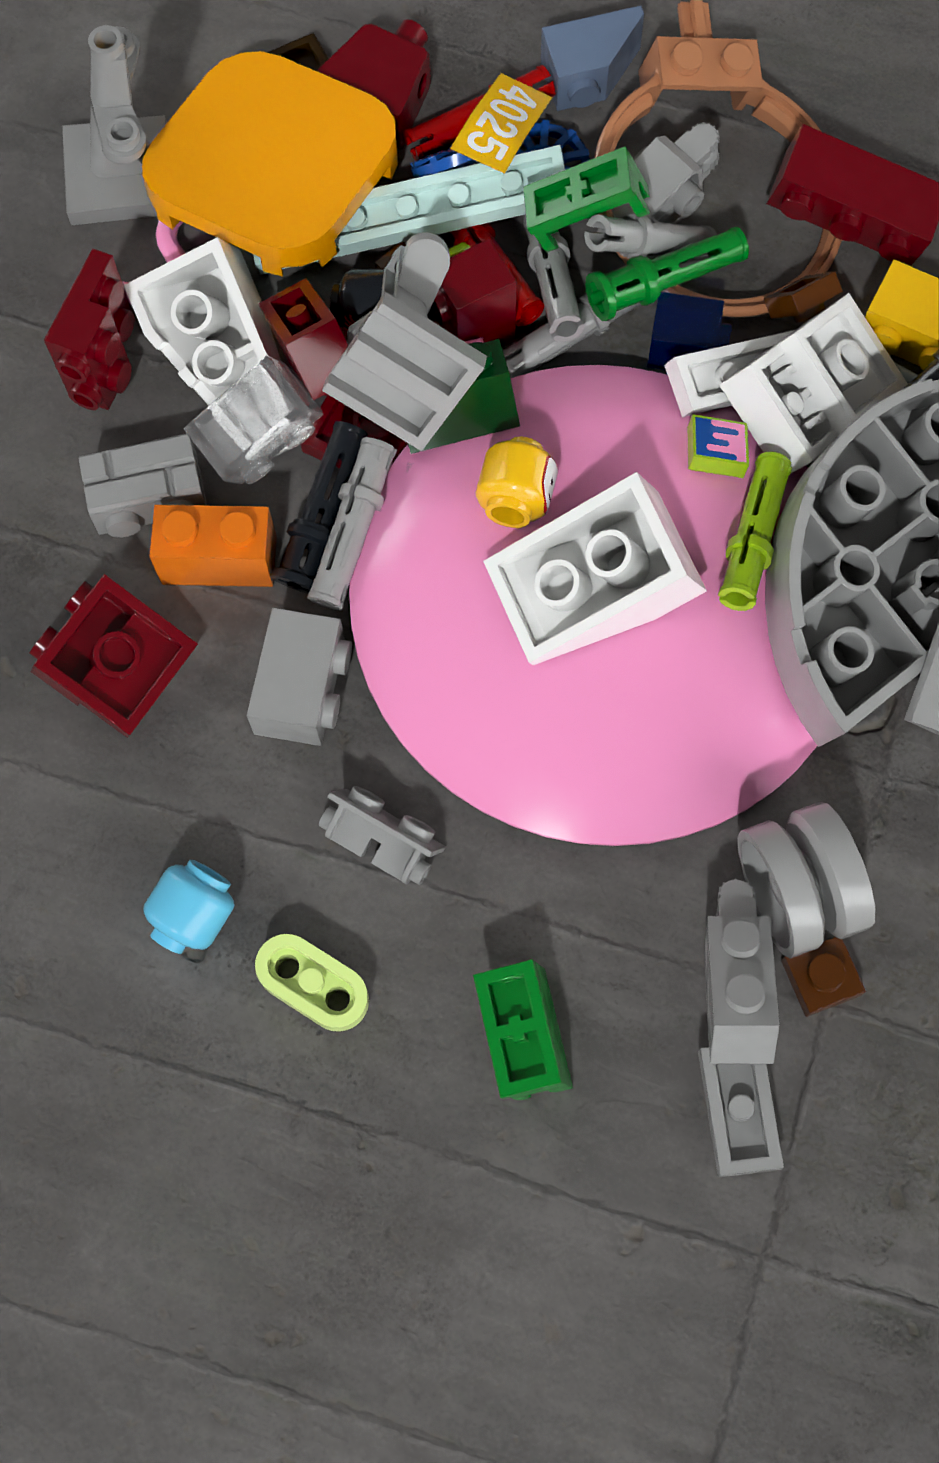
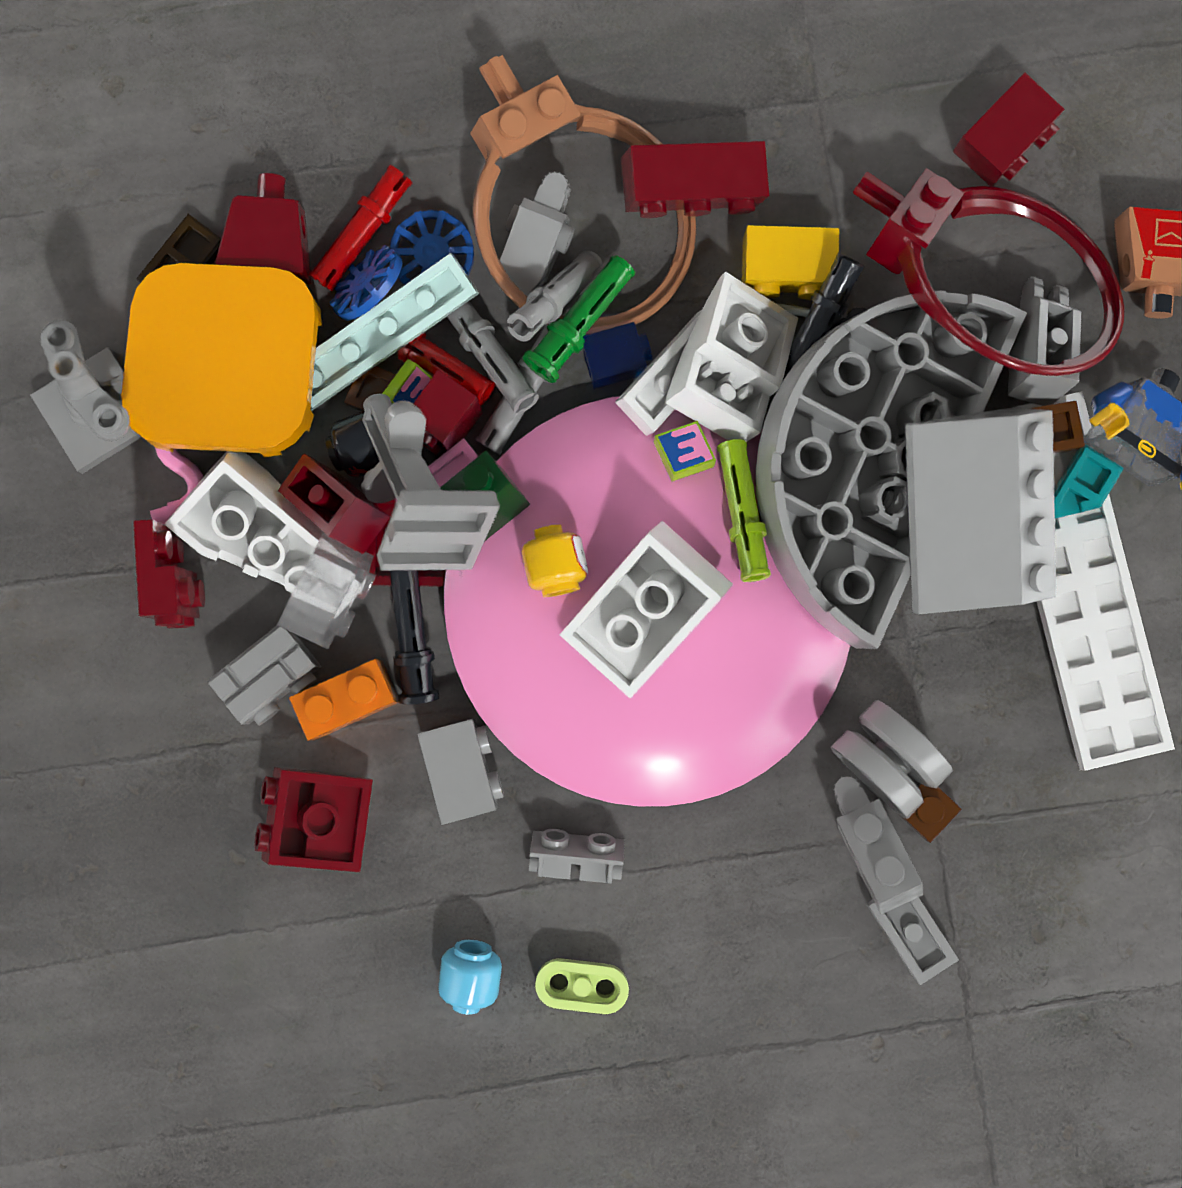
camera: 30 degrees left, 15 degrees up
(359, 502) = (442, 639): light grey pin -> none
(501, 123) = (391, 246): yellow sticker -> none
(522, 1030) = (744, 952): green hinge -> none
(582, 193) = (493, 297): green hinge -> none
(590, 55) = (424, 138): sand blue slope -> none
(804, 297) = (690, 284): reddish brown plate -> none

